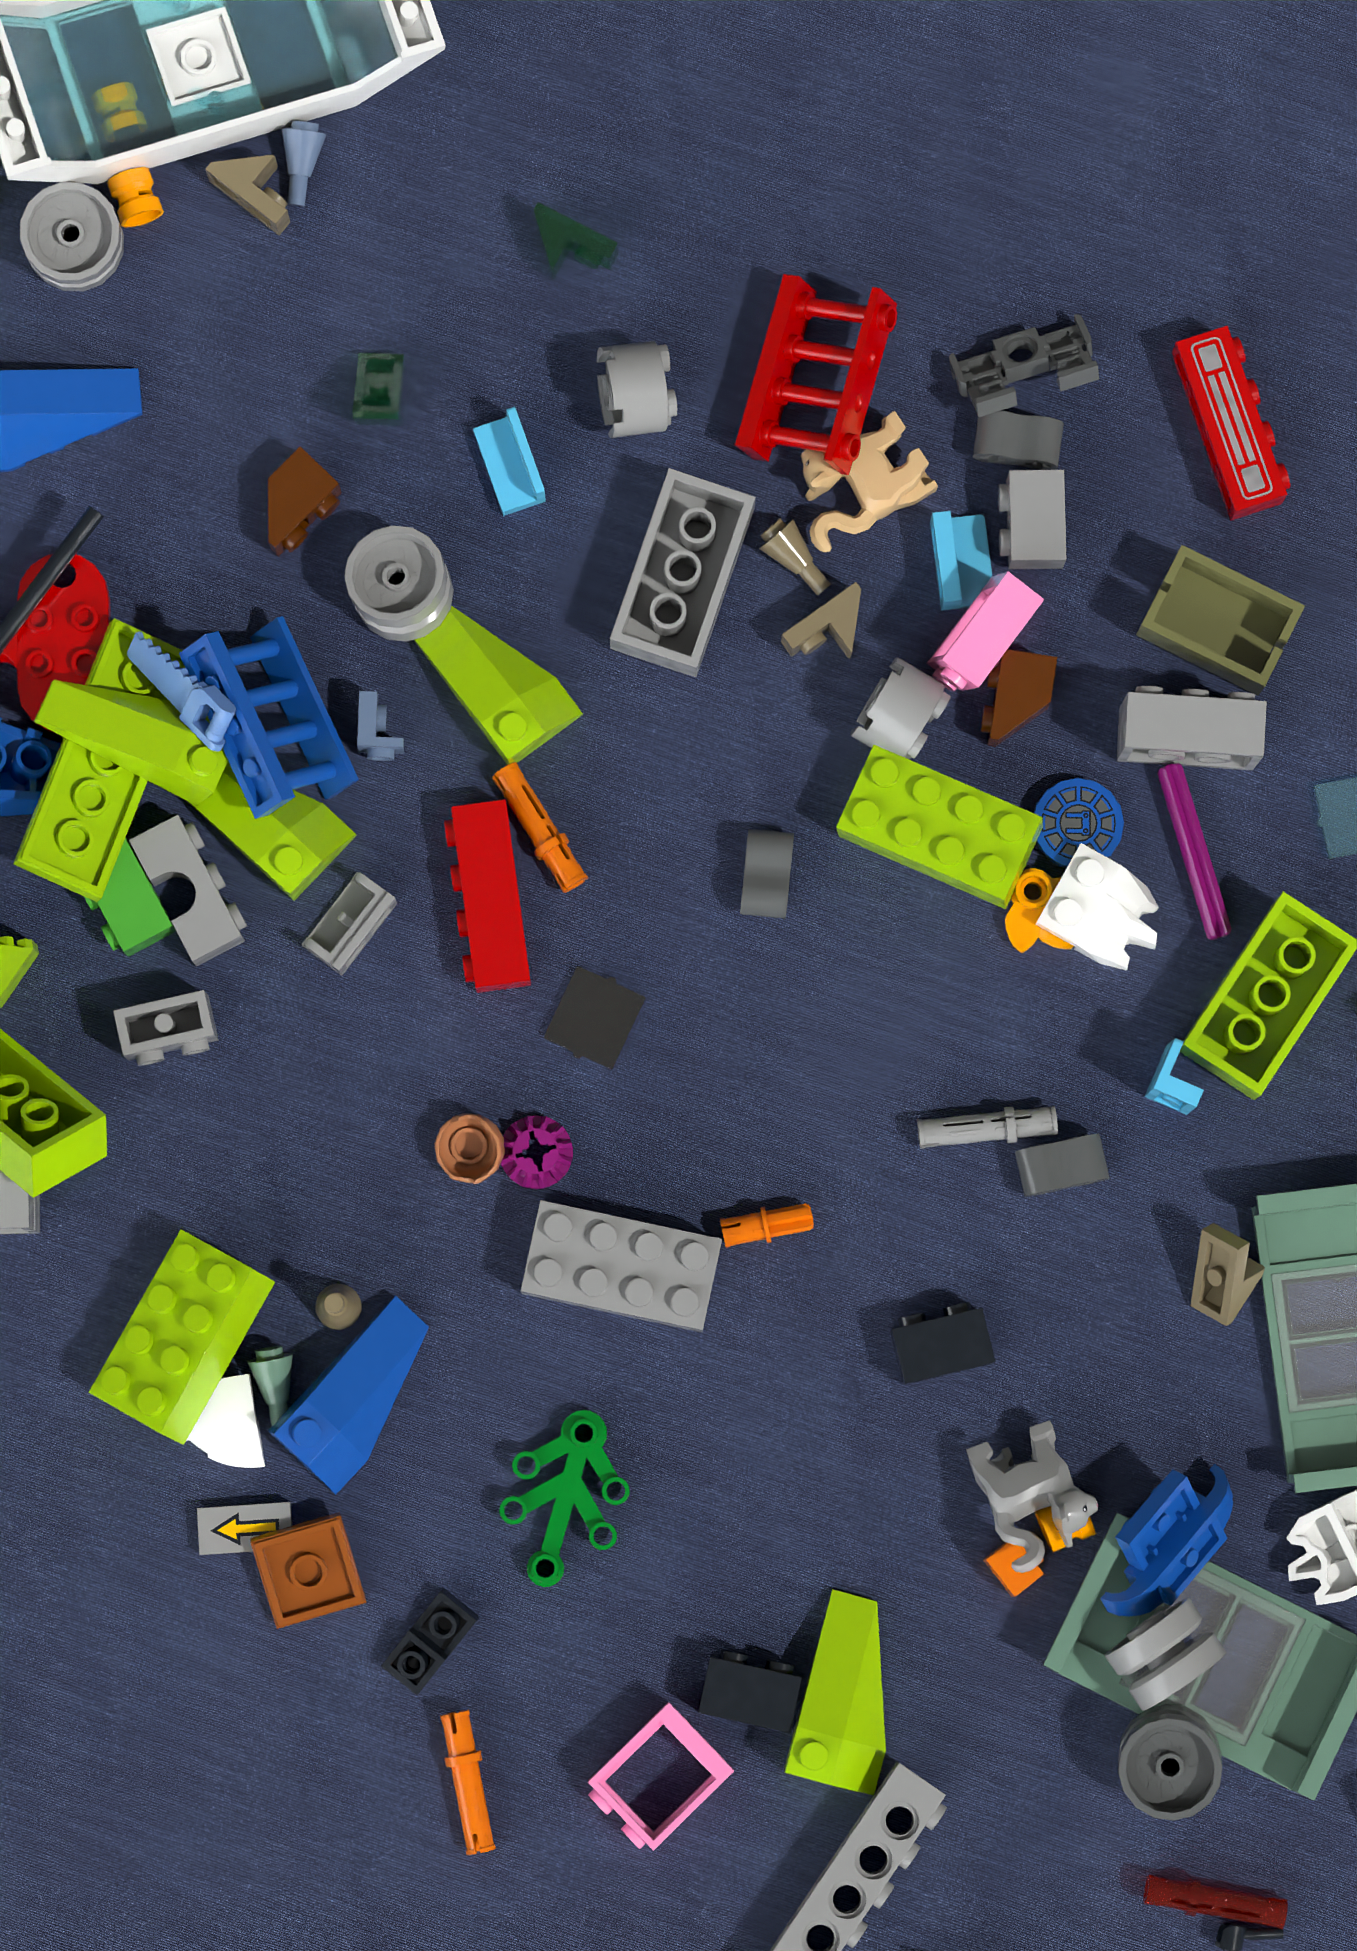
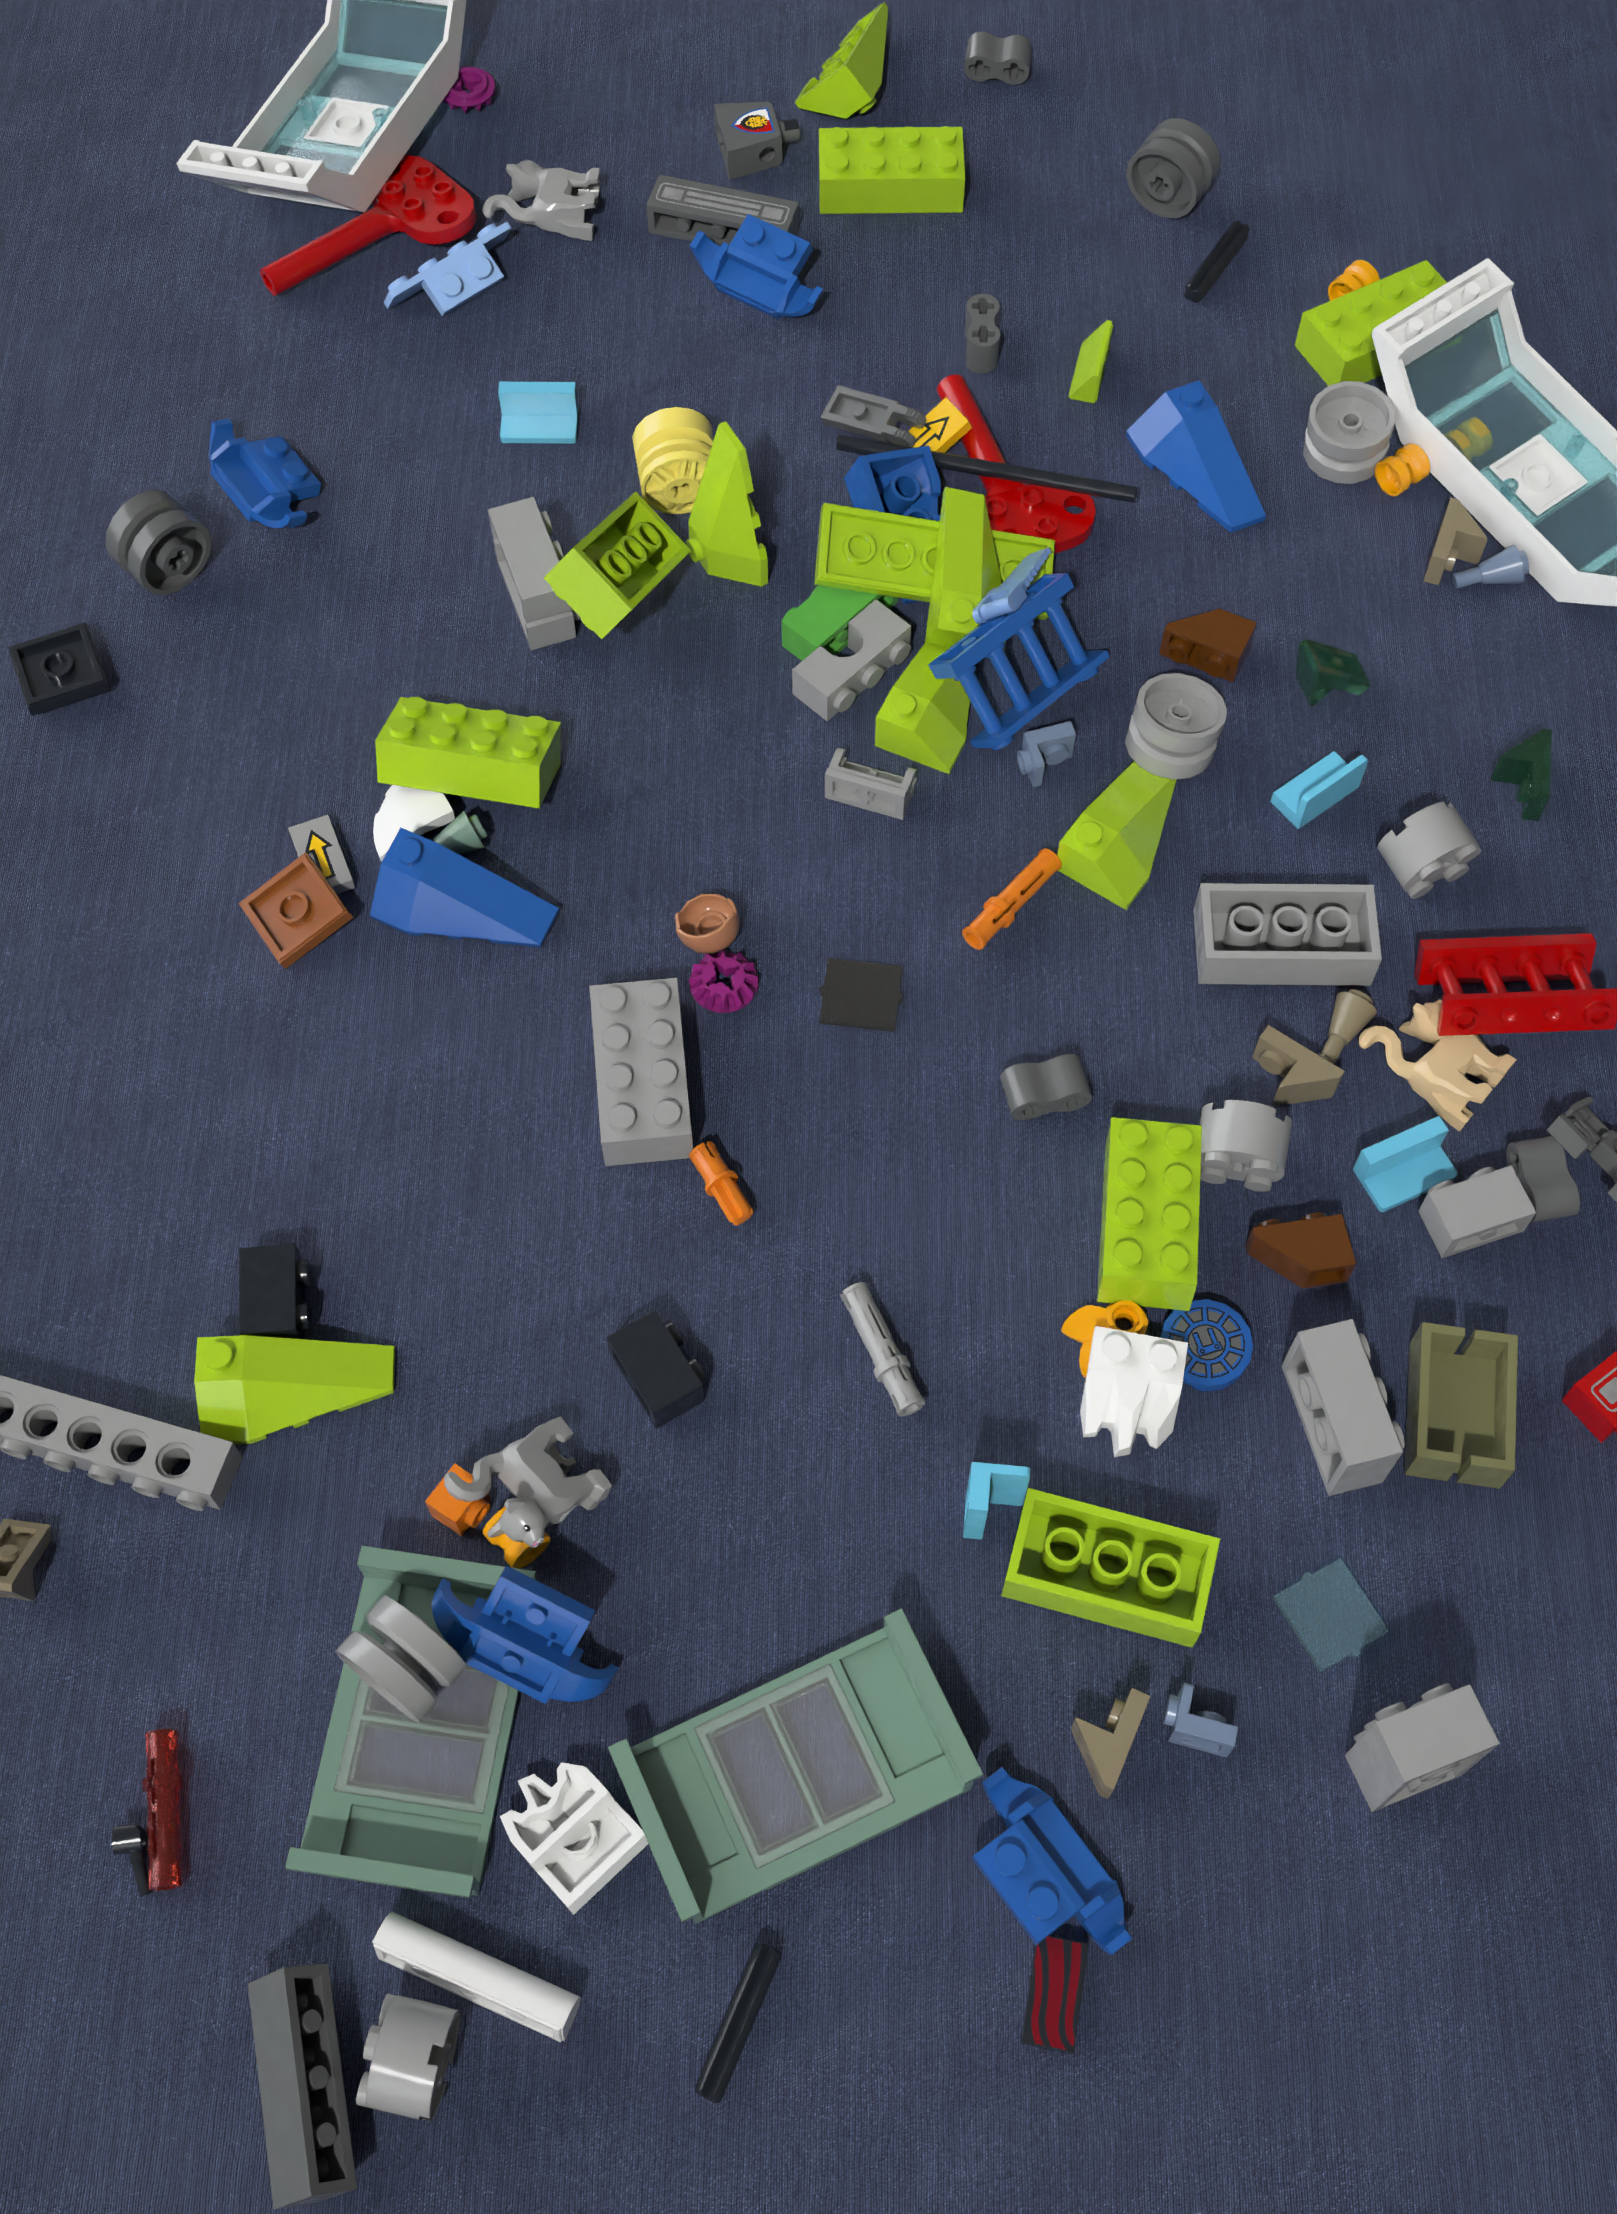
camera: 75 degrees right, 20 degrees down
(166, 1026) = (731, 671): light grey brick -> none
(338, 1306) = (535, 866): dark tan cone -> none
(430, 1641) = (255, 1025): black slope -> none
(467, 1781) = (143, 1084): orange pin -> none
(489, 895) = (935, 876): red brick -> none
(568, 1490) = (422, 1094): green plant -> none
(635, 1827) = (209, 1265): bright pink window -> none
(984, 632) = (1363, 1190): bright pink window -> none
(1062, 1165) = (869, 1427): dark grey axle -> none
(1171, 1789) = (293, 1708): dark grey wheel -> none
(1194, 851) = (1224, 1461): magenta axle -> none
(1223, 1274) = (813, 1612): dark tan slope -> none

